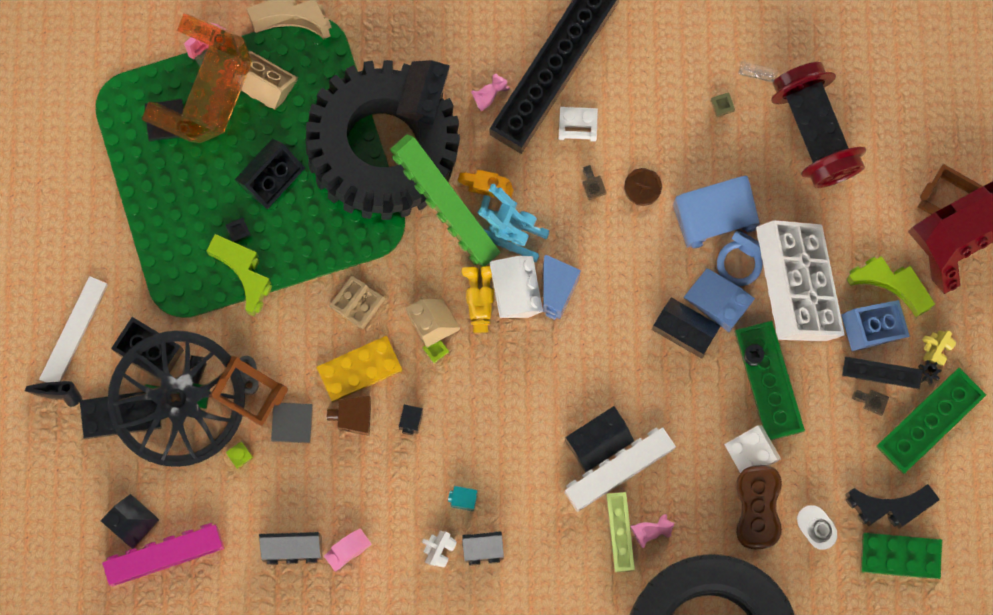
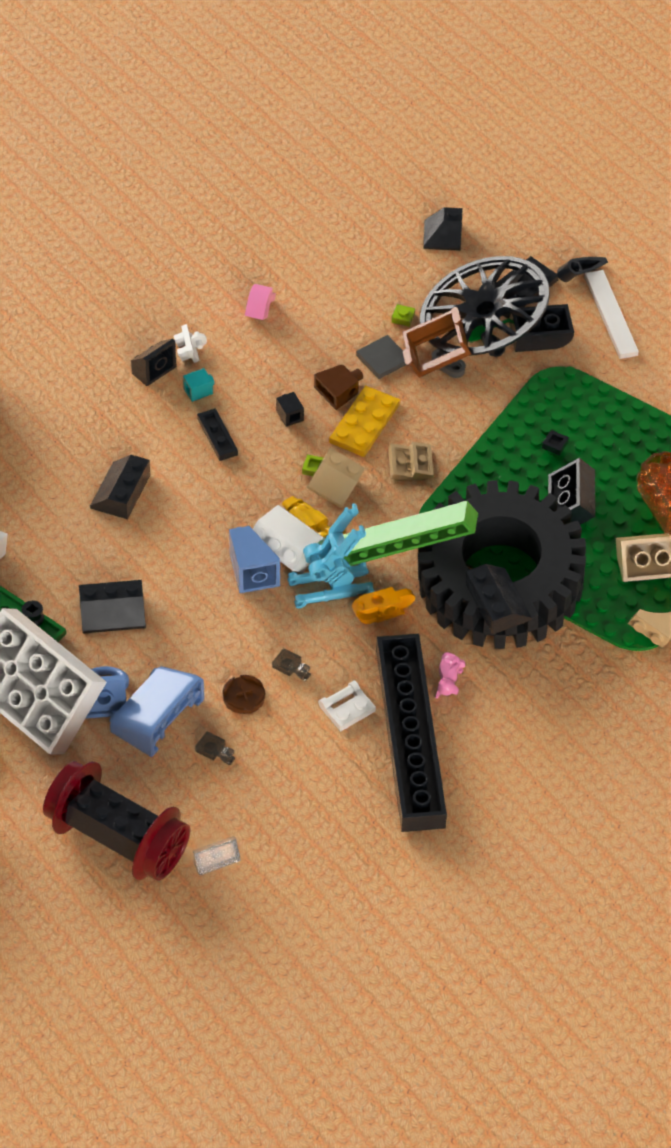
camera: 140 degrees right, 25 degrees down
(163, 555) = (396, 225): dark pink brick -> none
(242, 262) = (527, 421): lime arch -> none
(291, 547) = (306, 280): slope -> none
(486, 437) = (217, 434): none -> black plate
(620, 469) = (84, 476): white brick -> none
(620, 532) = (49, 437): yellowish green plate -> none
(648, 531) = (29, 442): bright pink animal -> none
(699, 155) = (214, 746): none -> clear smoke plate
(719, 299) = (100, 644): medium blue slope -> none
(722, 104) = (226, 804): olive plate -> none

